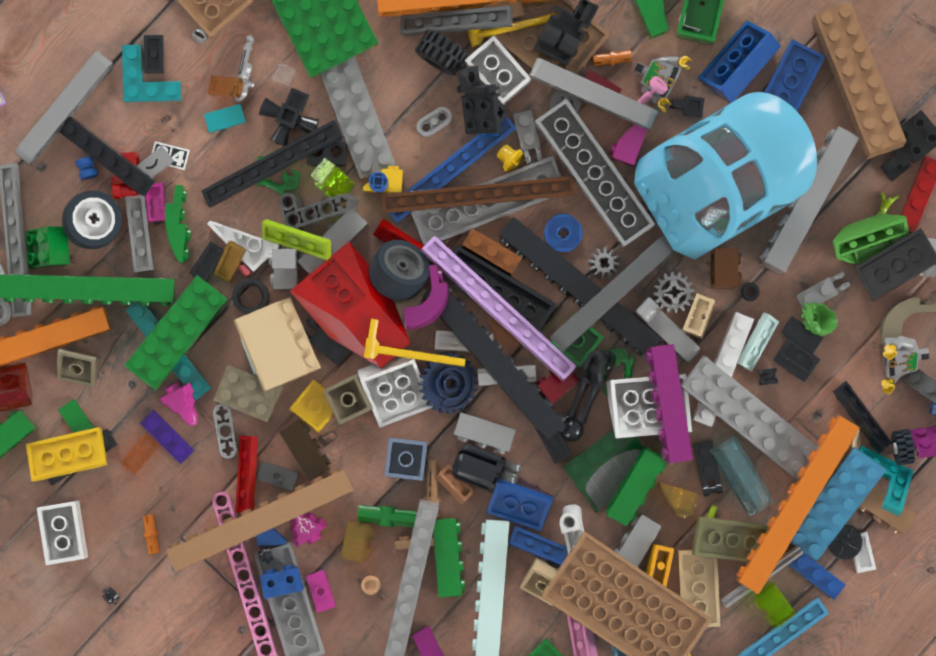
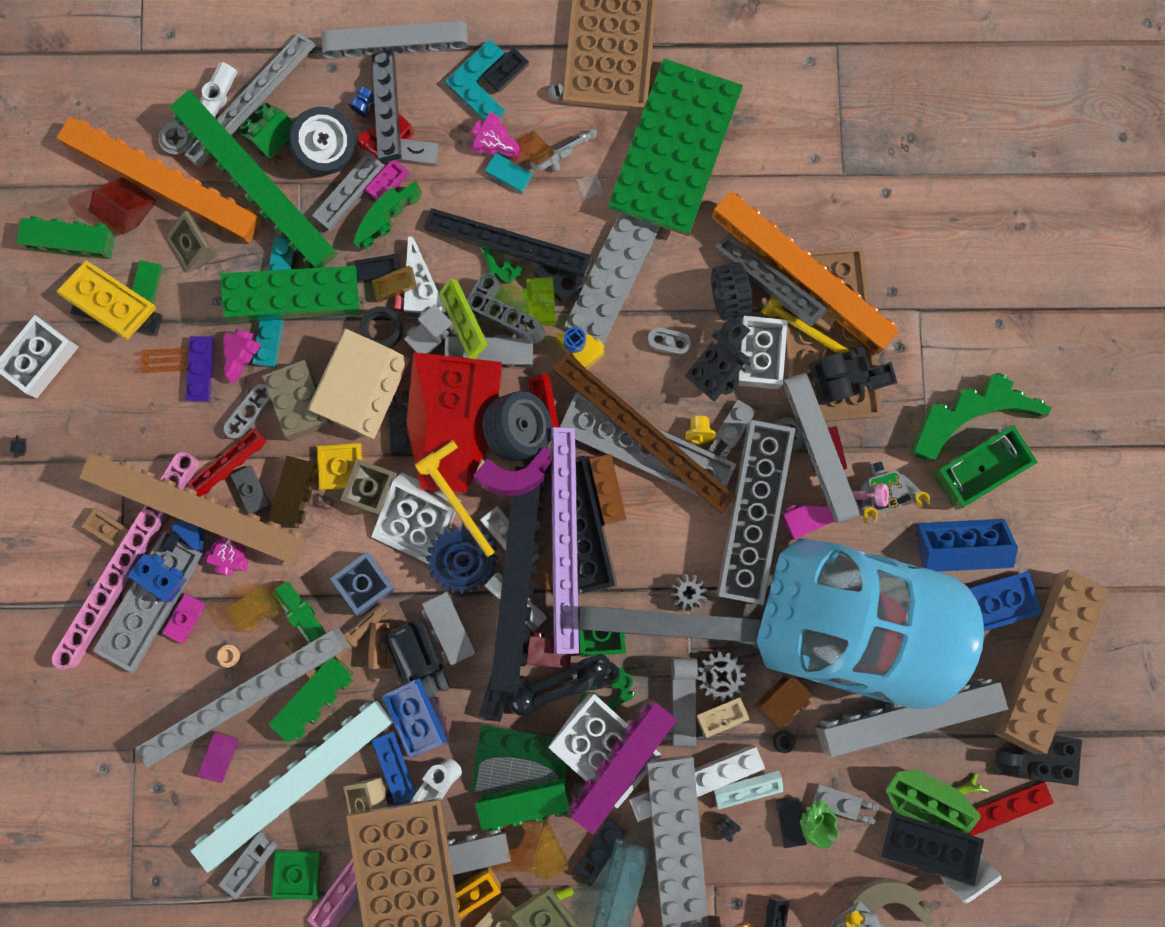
camera: 40 degrees right, 5 degrees down
(151, 534) = (103, 431): orange pin -> none
(178, 154) = (444, 164): white sticker -> none
(192, 106) = (493, 138): none -> dark pink rock
(217, 587) = (105, 528): none -> medium nougat plate
(289, 116) = (559, 219): black brick -> none
(459, 162) = (658, 393): blue plate -> none
(554, 226) = (680, 522): blue plate -> none
(576, 284) = (648, 589): black brick -> none
(612, 58) = (863, 437): orange pin -> none
(691, 106) = (889, 540): black plate -> none
(796, 359) = (765, 838): black plate -> none

